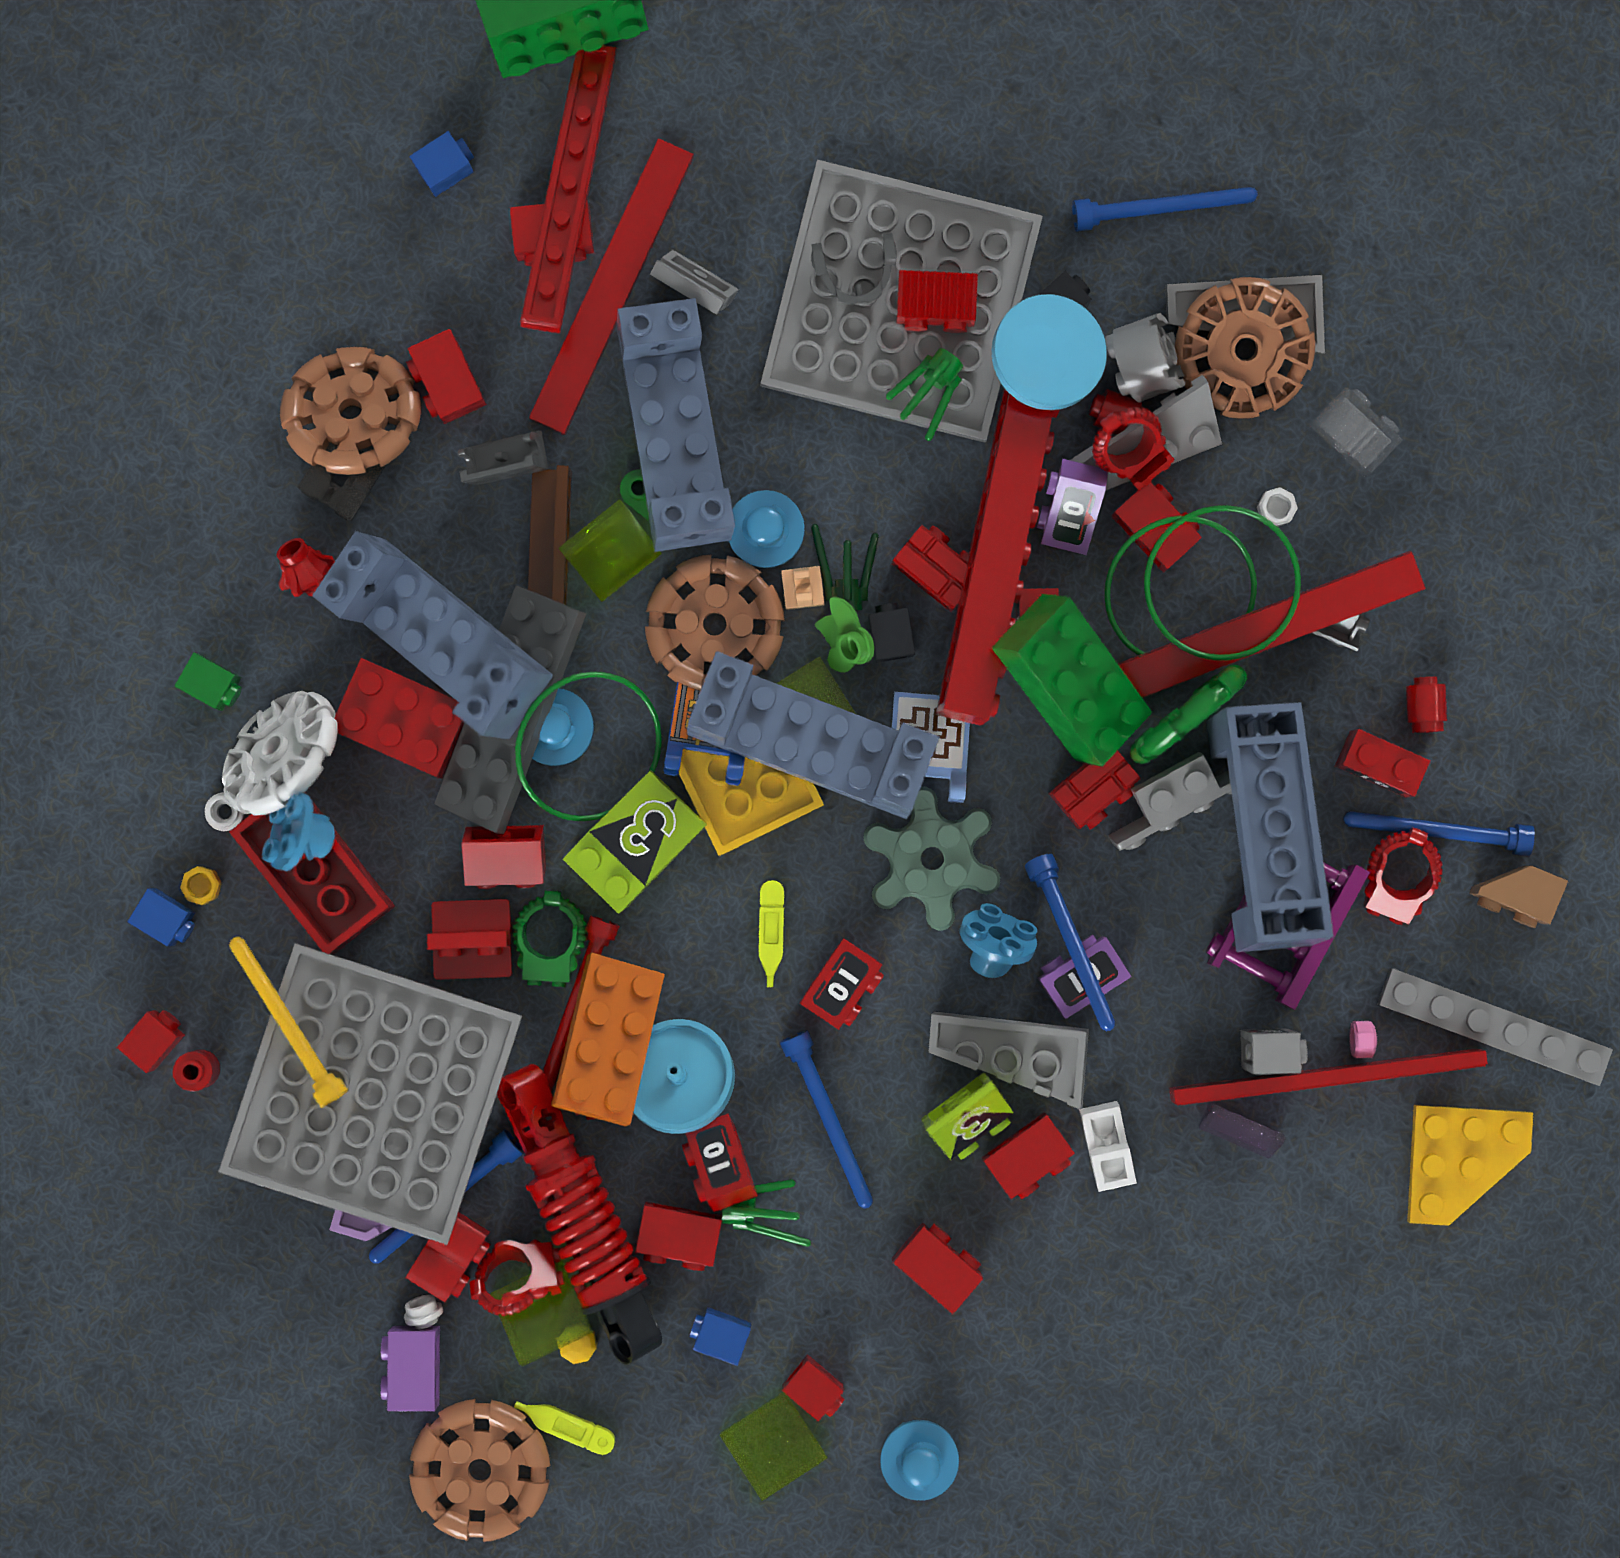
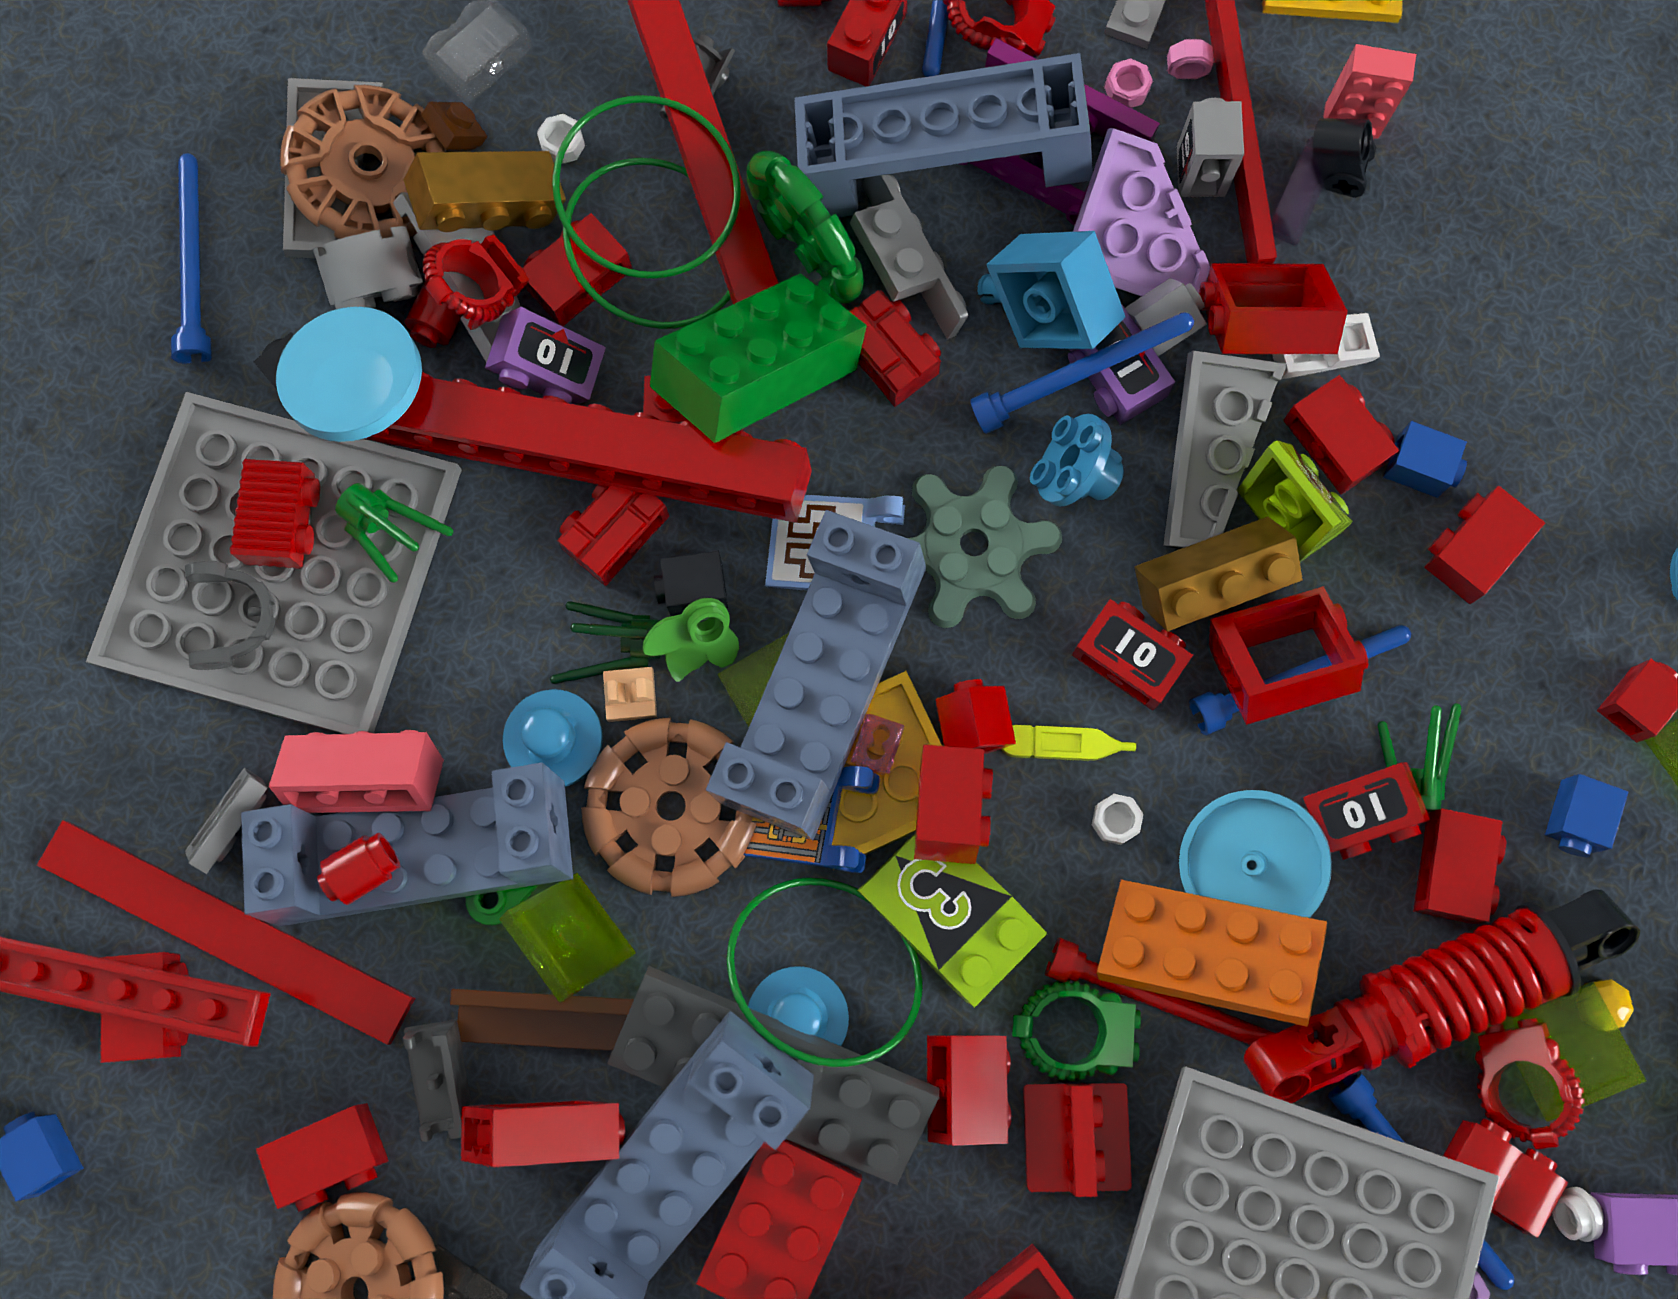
camera: 85 degrees left, 10 degrees down
(464, 539) = (541, 1132): none -> red window
(655, 389) = (357, 868): none -> red brick
(711, 971) = (1117, 819): none -> white tile
(714, 839) = (951, 804): none -> red brick
(732, 381) = (357, 772): none -> coral brick
(760, 792) = (866, 740): none -> clear pink piece
(785, 859) = (976, 717): none -> red brick
(871, 1098) = (1304, 611): none -> red window
(907, 1052) = (1218, 573): none -> pearl gold brick
(1007, 1225) = (1427, 460): none -> blue brick
(1130, 1012) = (1165, 302): none -> light grey brick
(1135, 919) = (1054, 290): none -> dark azure brick
(1153, 1095) = (1273, 308): none -> red window
(1196, 988) = (1140, 218): none -> lavender plate
(1216, 448) = (482, 190): none -> pearl gold brick
(1272, 1163) = (1343, 154): none -> black piece
(1284, 417) = (454, 125): none -> reddish brown plate
(1321, 1183) = (1371, 86): none -> coral piece
(1340, 986) = (1129, 82): none -> bright pink tile

